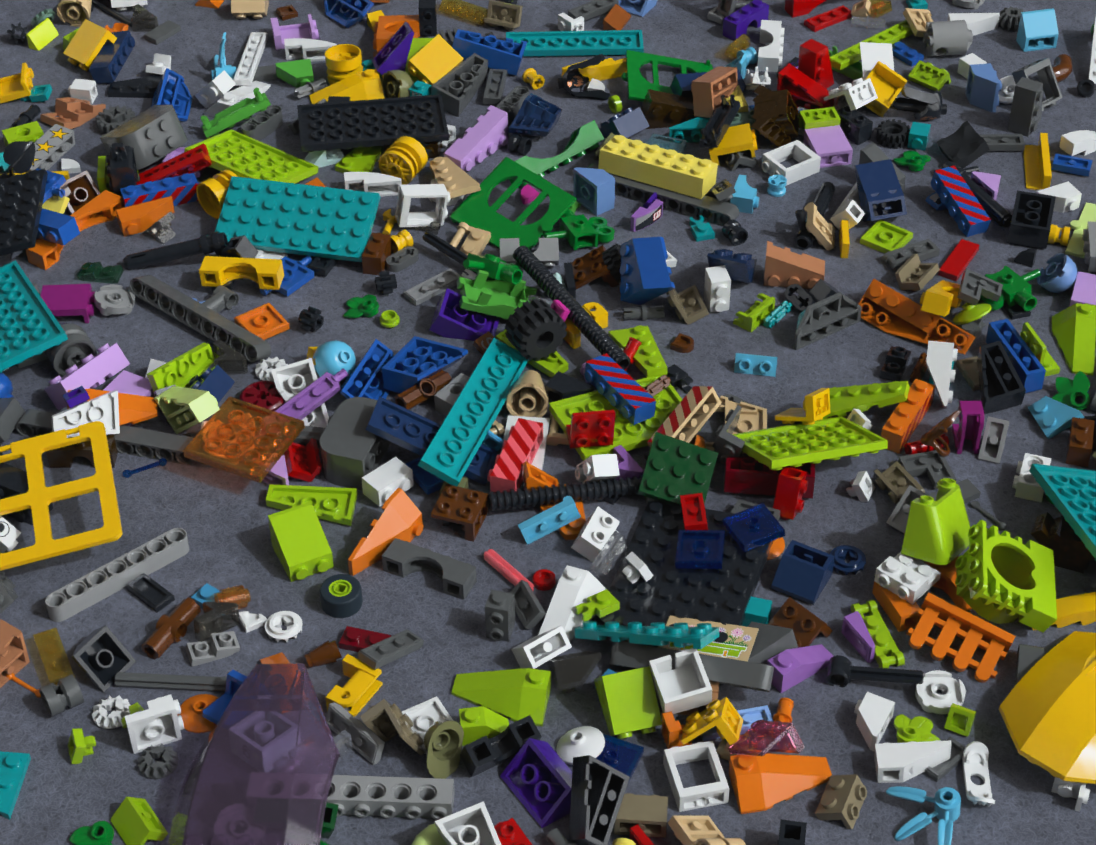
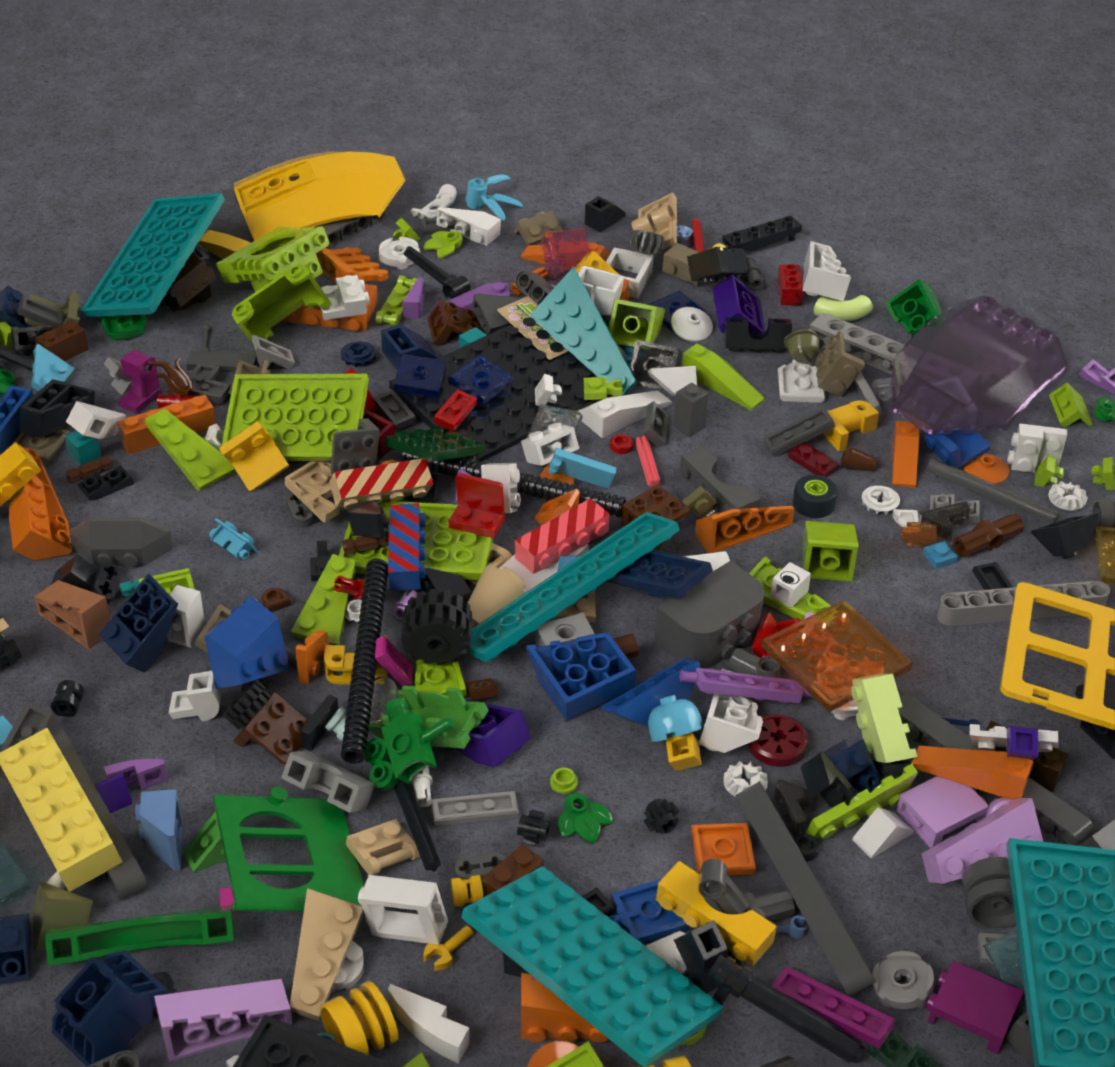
camera: 150 degrees left, 0 degrees up
(141, 267) = (836, 1007): none -> magenta plate
(210, 358) = (825, 779): none -> black slope
(245, 269) = (717, 885): none -> dark grey piece
(312, 488) = (790, 584): none -> white brick
(427, 531) = (700, 502): none -> olive plate
(480, 722) = (760, 358): lime slope -> none
(581, 231) = (235, 778): green piece -> none
(612, 306) = (311, 655): none -> orange wing
(664, 388) = (367, 519): none -> black slope
(695, 802) = (646, 242): none -> dark grey gear
(701, 230) = (91, 731): teal plate -> none
(873, 717) = (465, 253): white slope -> none
(1025, 483) = (139, 336): white brick -> none

